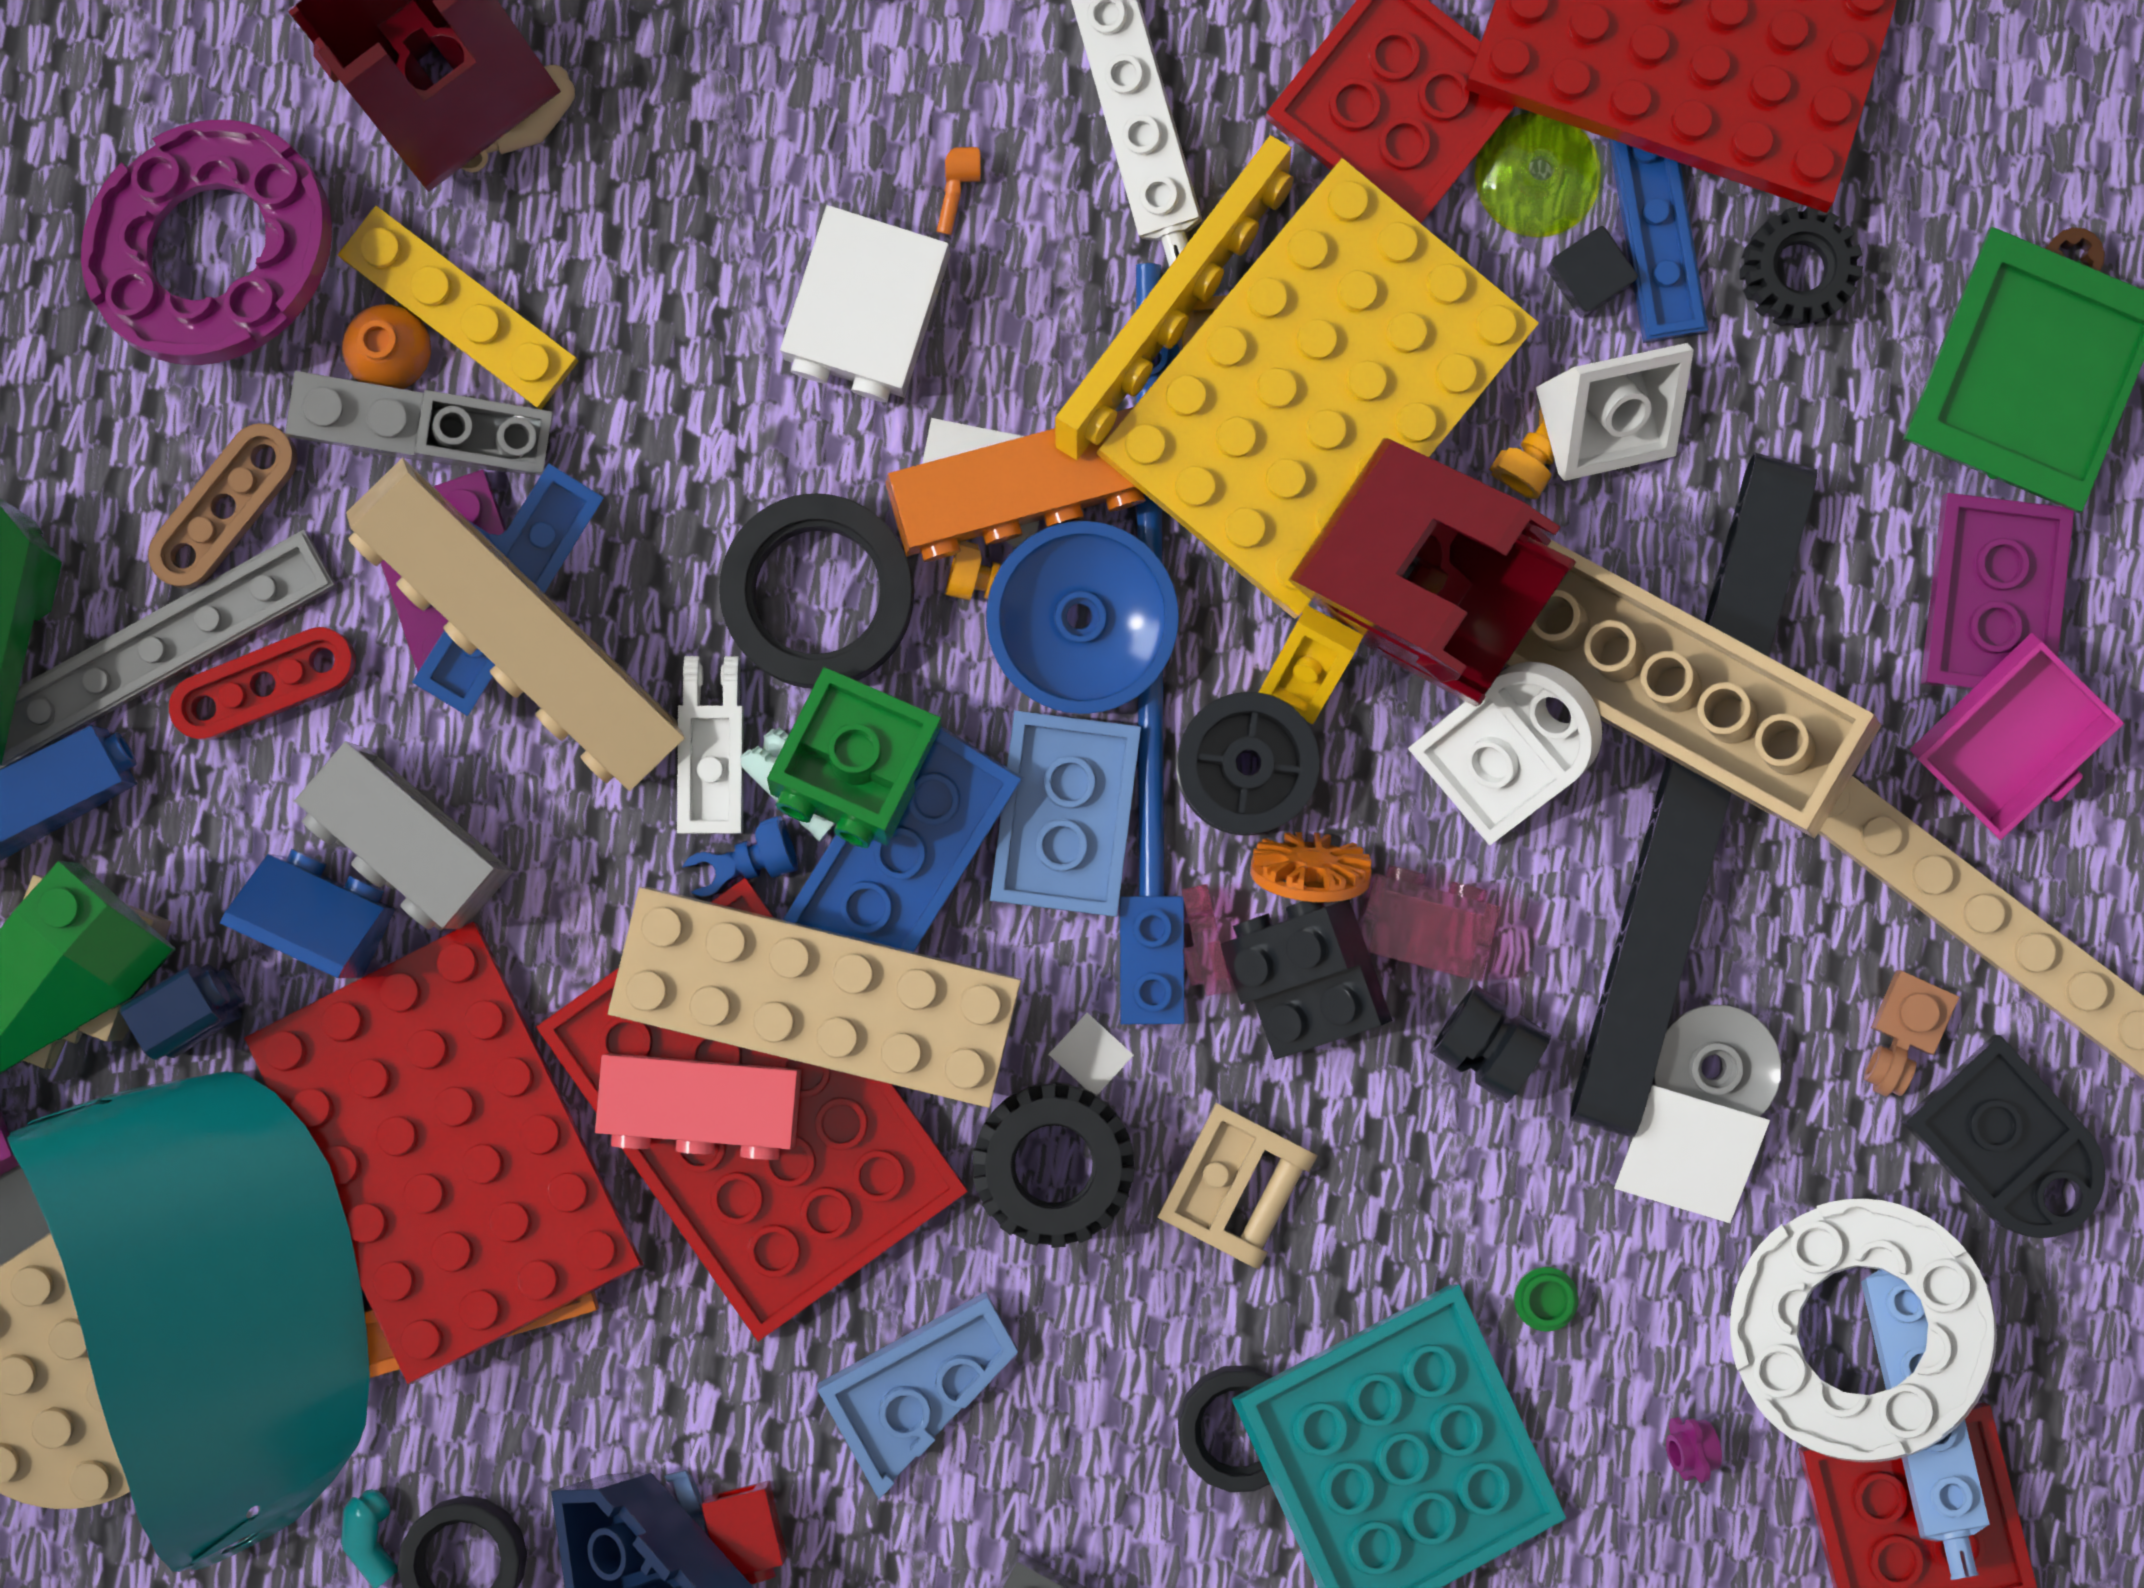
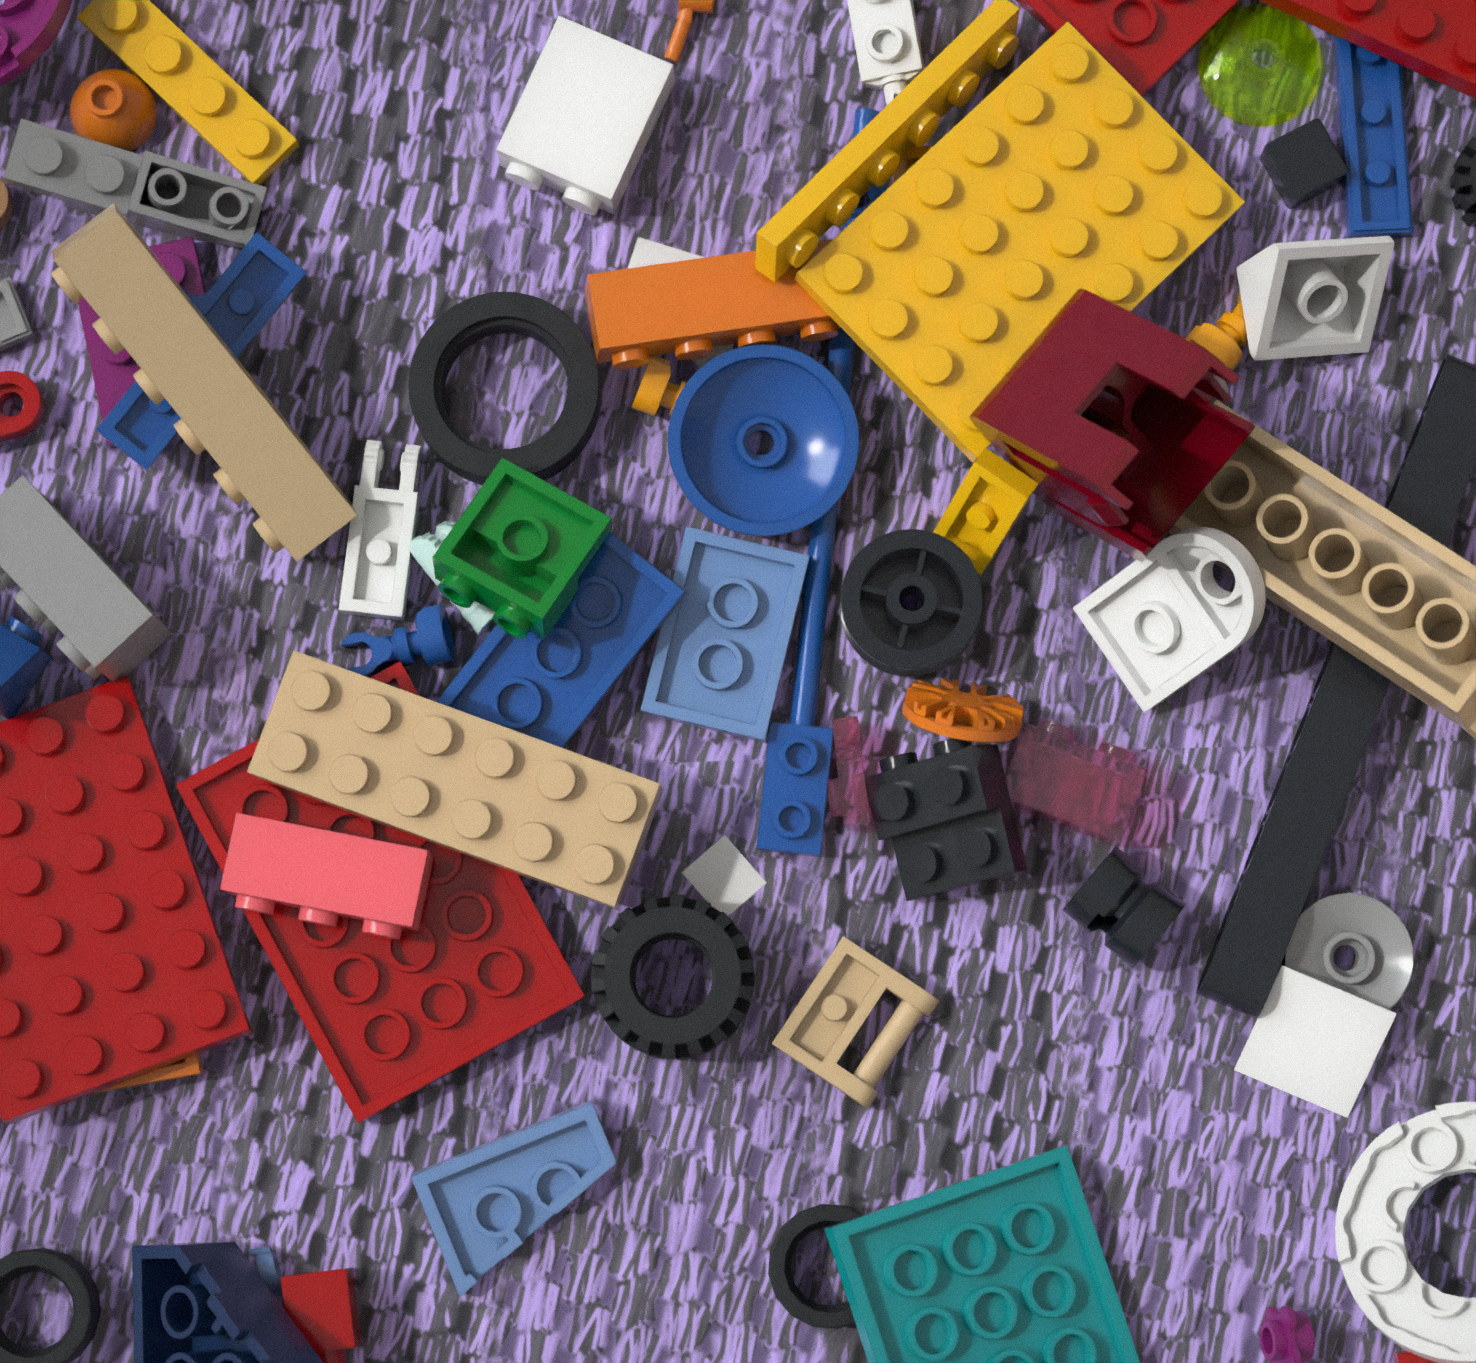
camera: 10 degrees right, 5 degrees down
(1546, 1299) = (1153, 1171): green plate -> none

